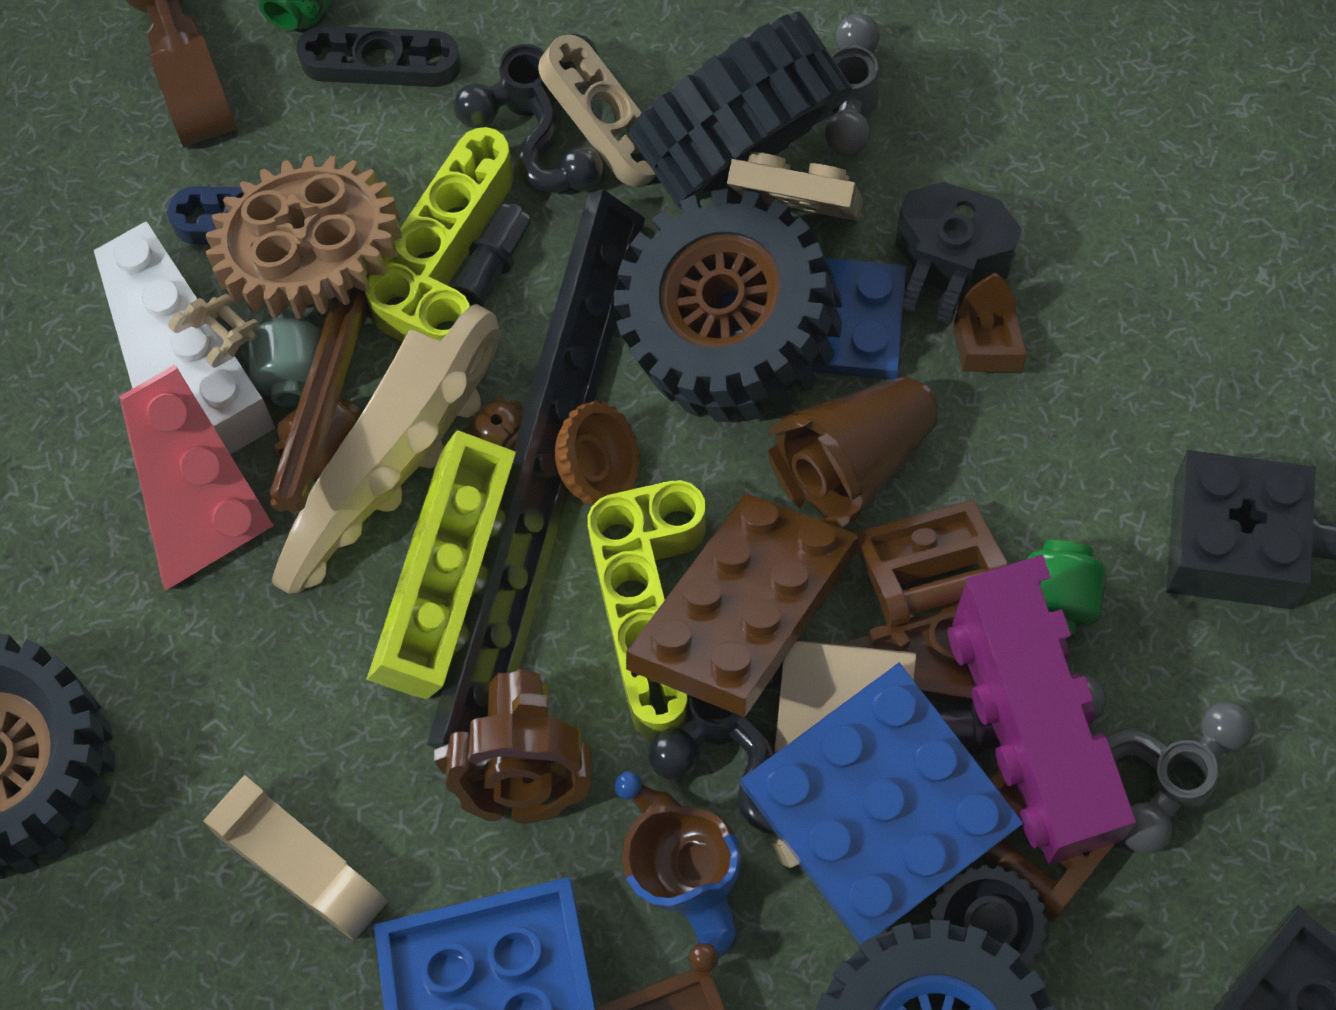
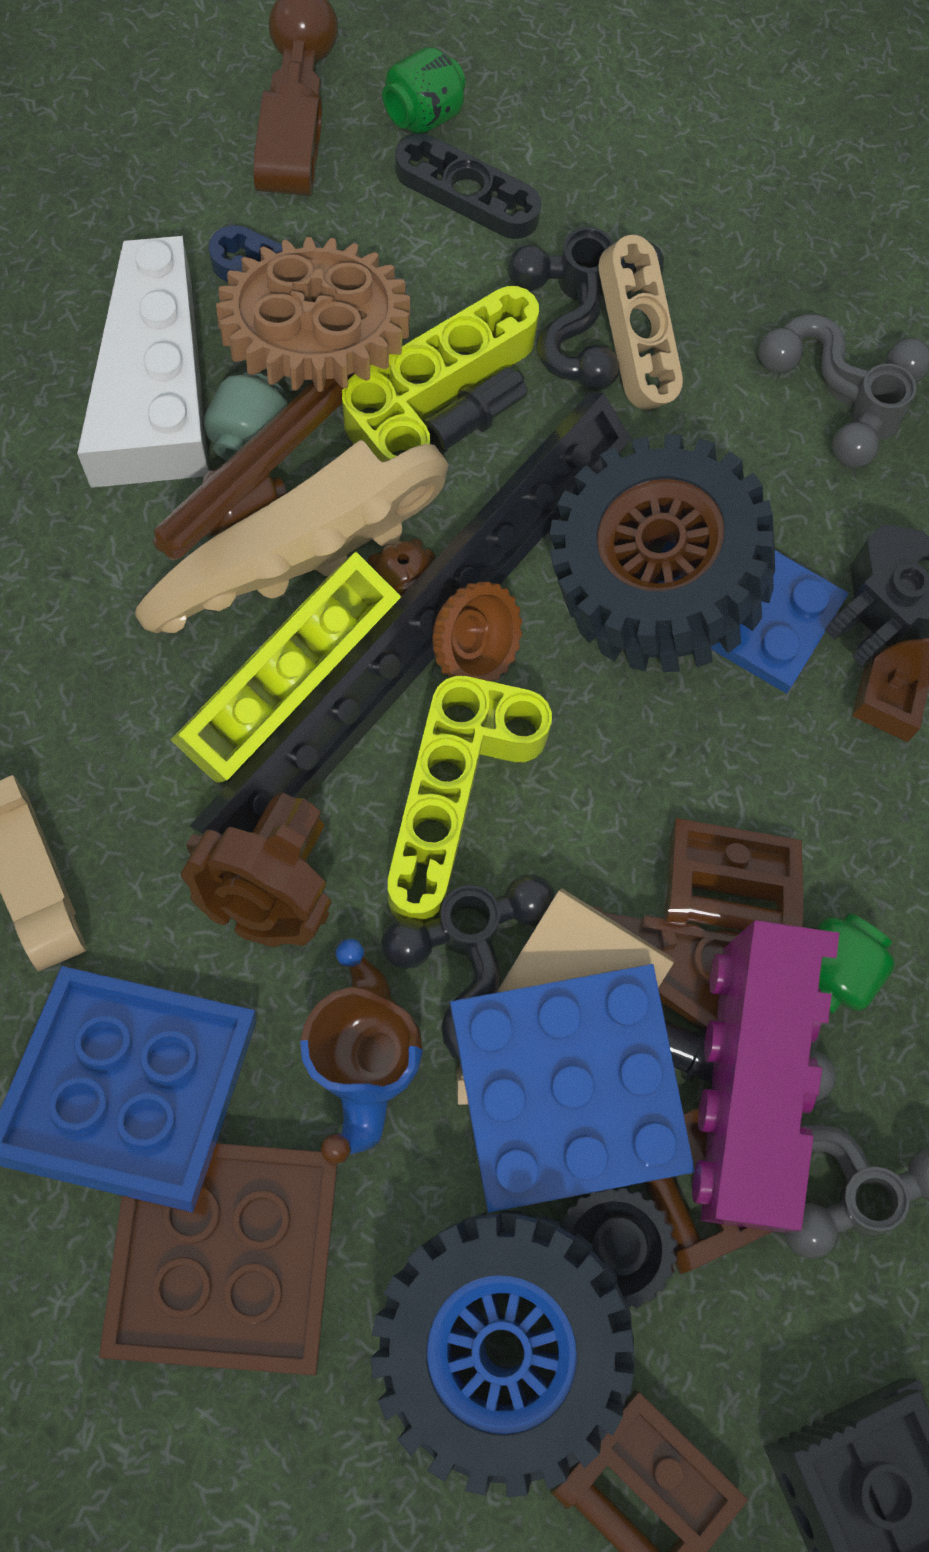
camera: 15 degrees right, 5 degrees up
(187, 478) = (100, 481): coral wing -> none
(201, 313) = (181, 338): tan piece -> none
(738, 103) = (766, 372): black wheel -> none
(742, 604) = (535, 837): reddish brown plate -> none
(820, 191) = (800, 484): tan plate -> none
(850, 446) = (713, 737): reddish brown cone -> none

